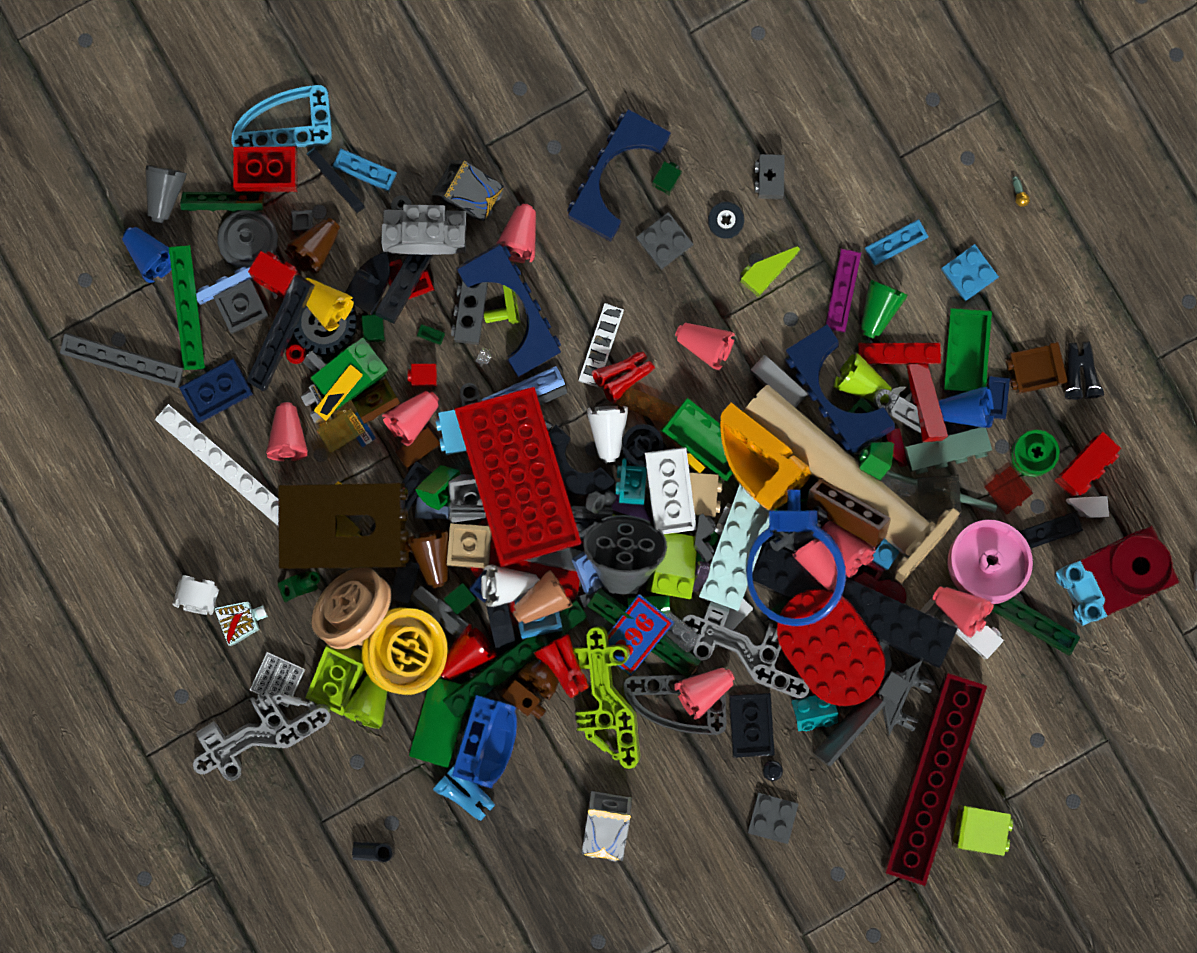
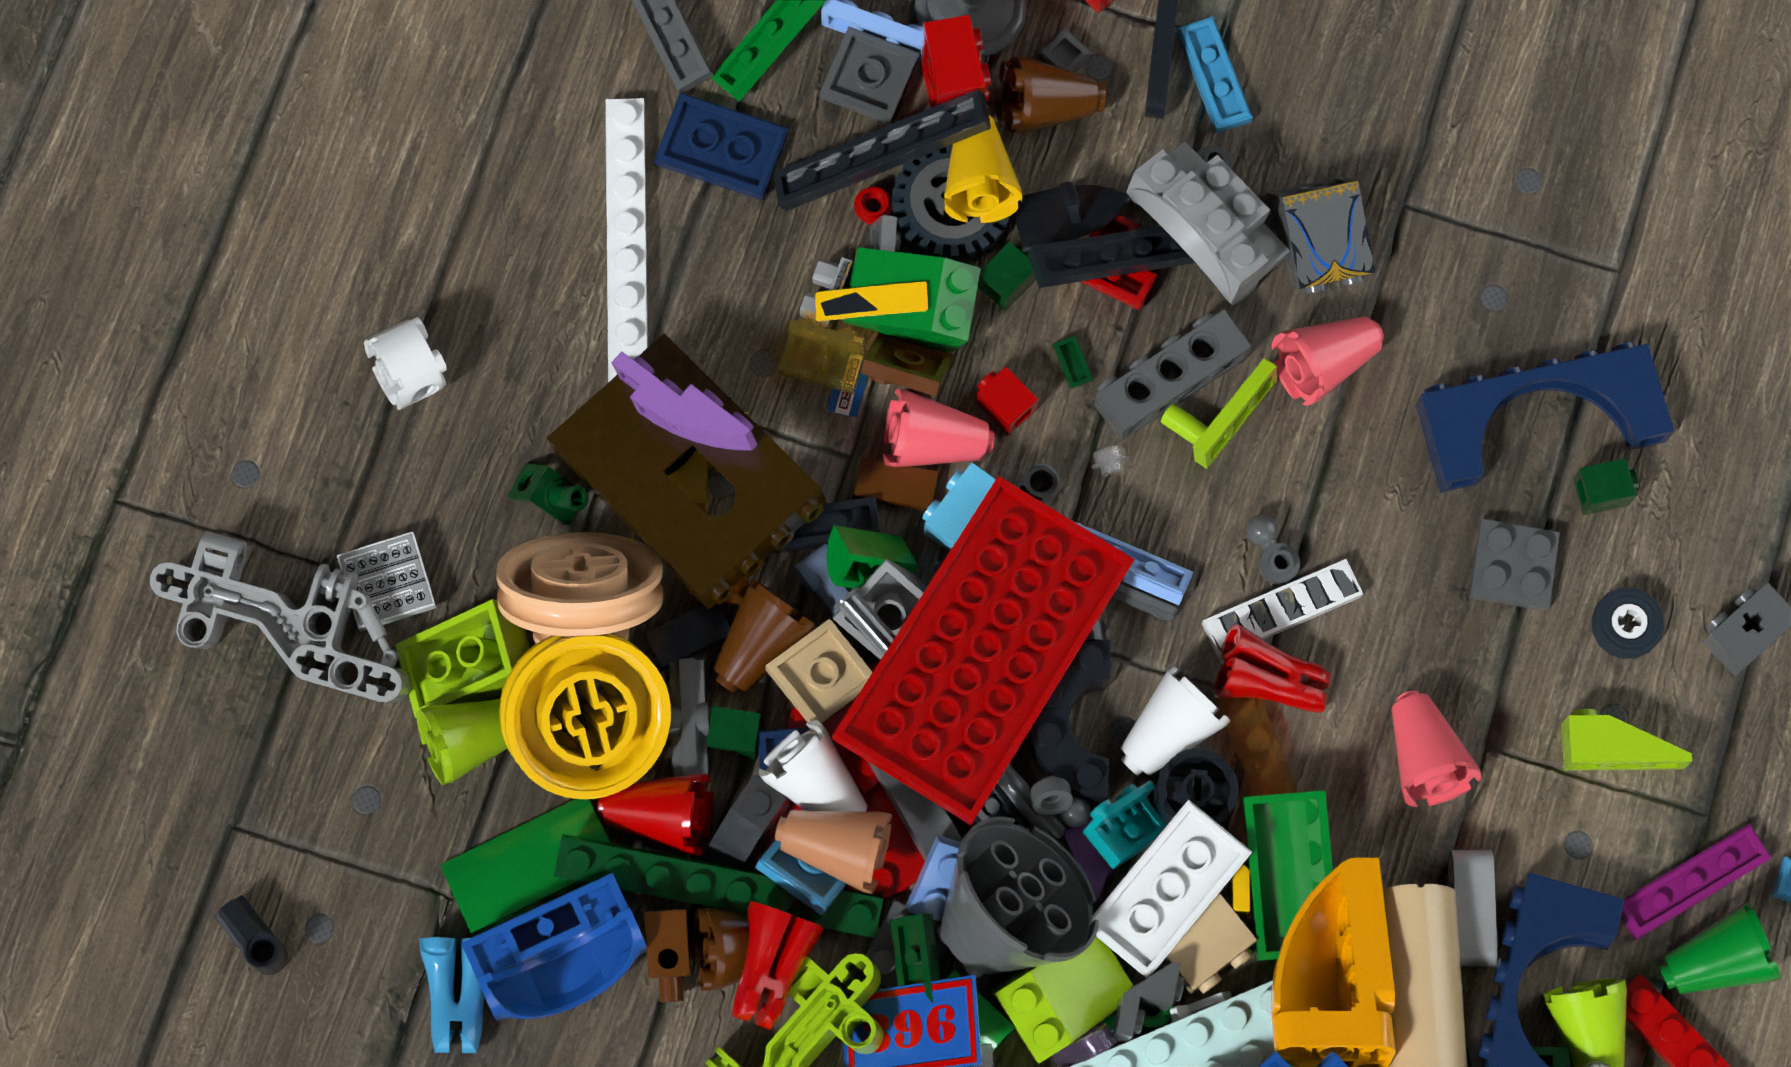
camera: 50 degrees right, 10 degrees down
(239, 621) = (423, 455): torso -> none
(286, 435) = (745, 289): coral cone -> none
(324, 506) = (685, 413): none -> medium lavender slope
(537, 343) = (1251, 354): dark blue arch -> none
(565, 325) = (1263, 532): none -> dark grey plate

